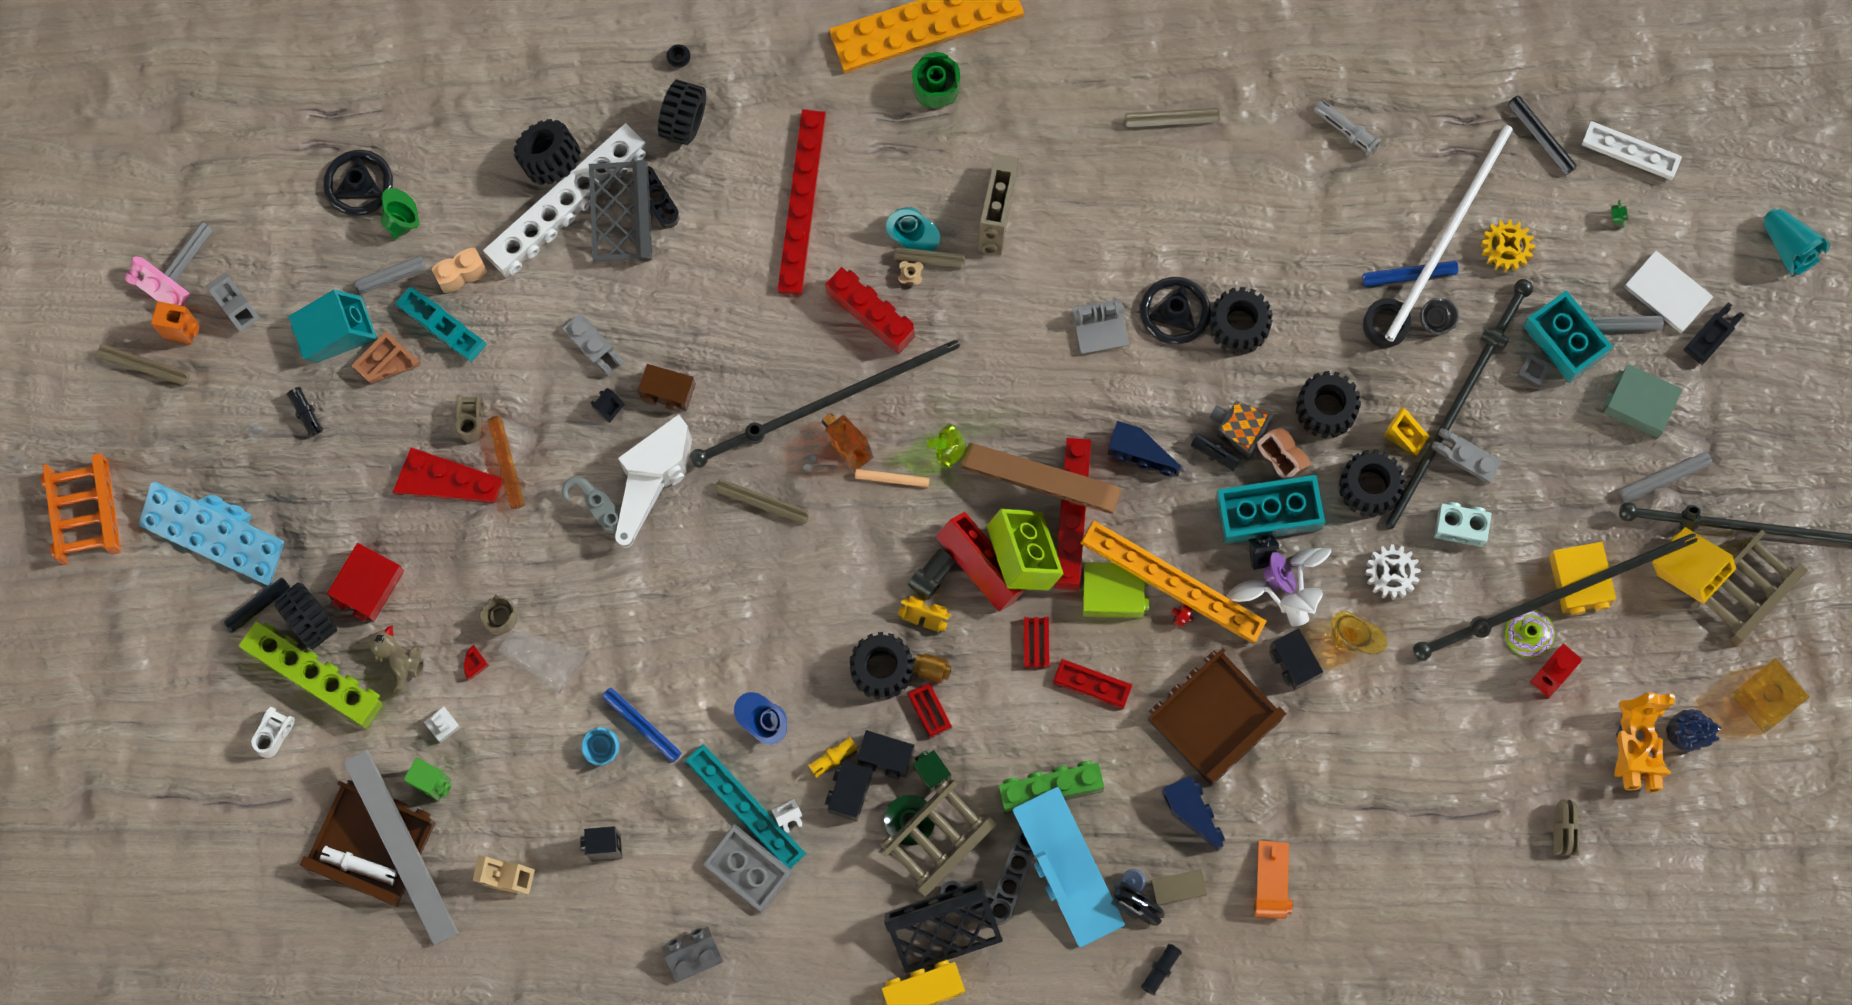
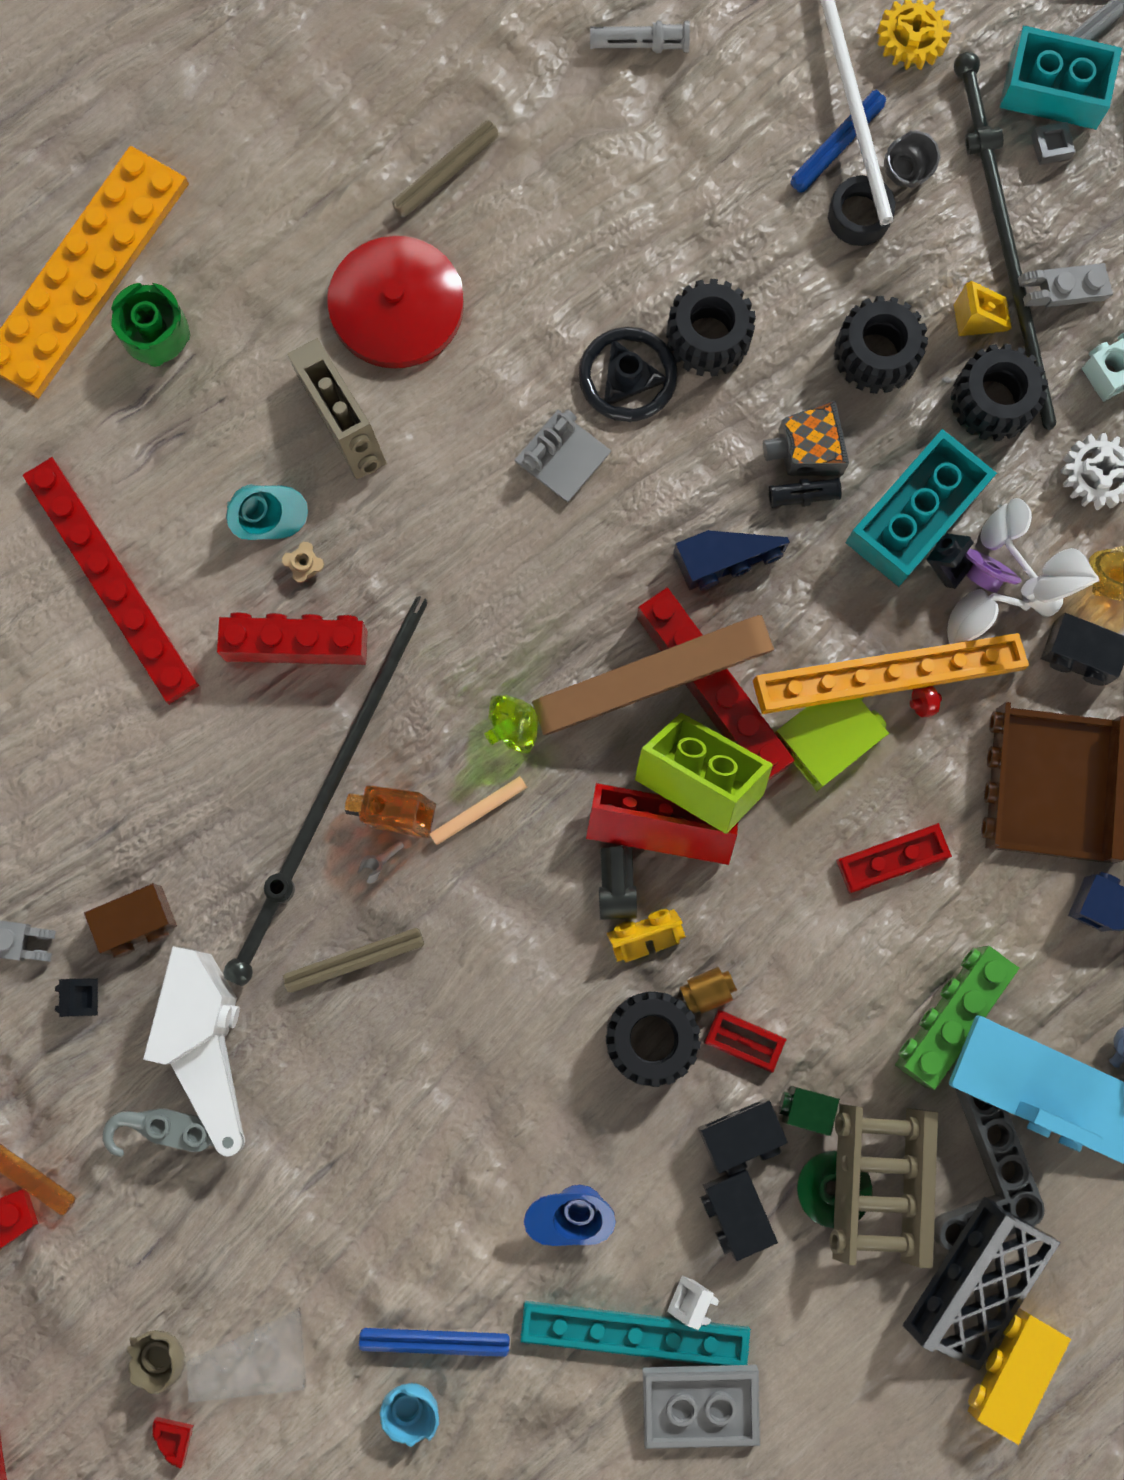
camera: 45 degrees left, 5 degrees up
(833, 757) = (685, 1189): yellow pin -> none
(929, 257) = (309, 528): dark tan axle -> none
(1036, 621) = (815, 886): red tile -> none
(1081, 170) = (395, 302): none -> red dish
(1281, 450) = (891, 436): nougat brick -> none

